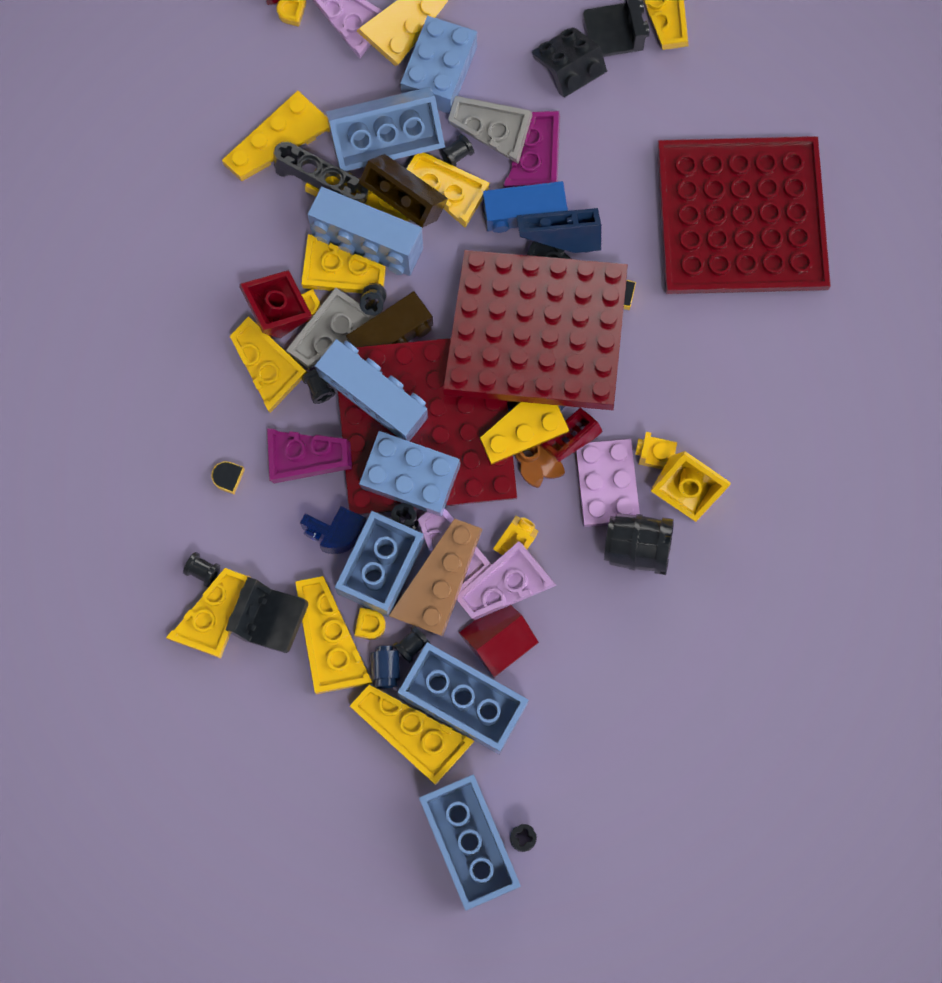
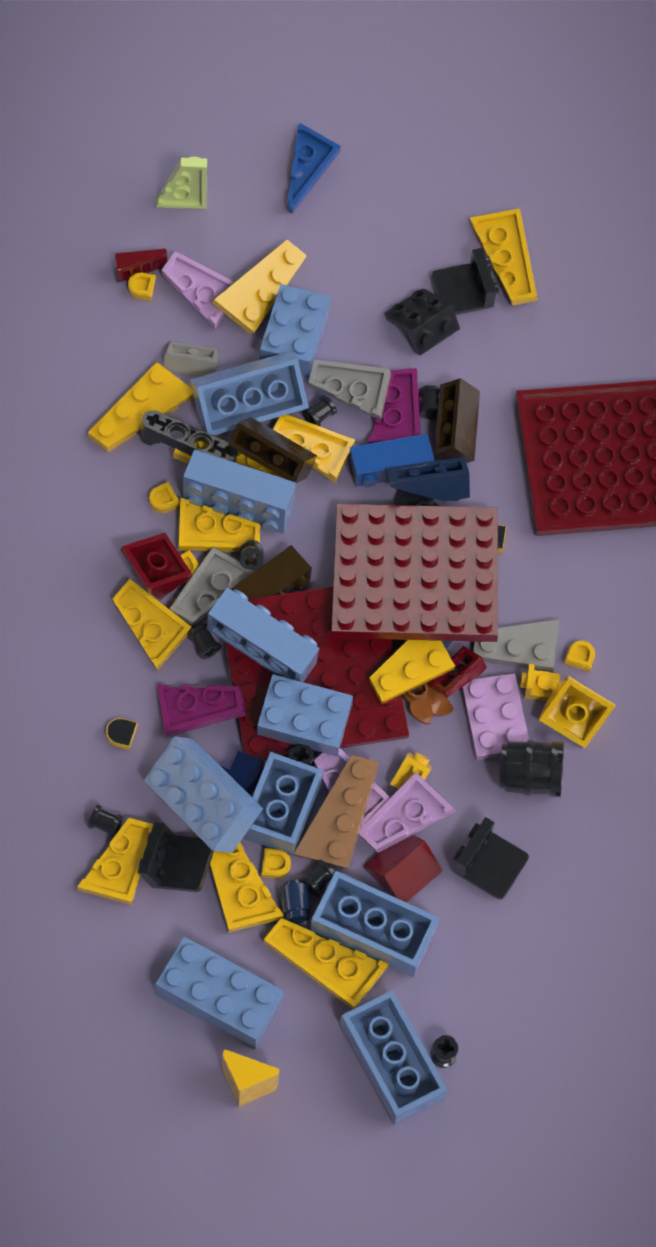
camera: 10 degrees left, 10 degrees down
(291, 233) = (163, 498): none -> yellow tile
(298, 552) = (203, 794): none -> medium blue brick
(299, 759) = (219, 992): none -> medium blue brick
(317, 857) = (248, 1077): none -> yellow slope
(333, 89) = (191, 359): none -> light grey slope
(570, 147) = (430, 401): none -> black bush
(588, 637) = (489, 860): none -> black bracket
(594, 169) = (457, 420): none -> dark brown brick
(643, 410) = (523, 646): none -> light grey wing
(700, 423) = (580, 655): none -> yellow tile

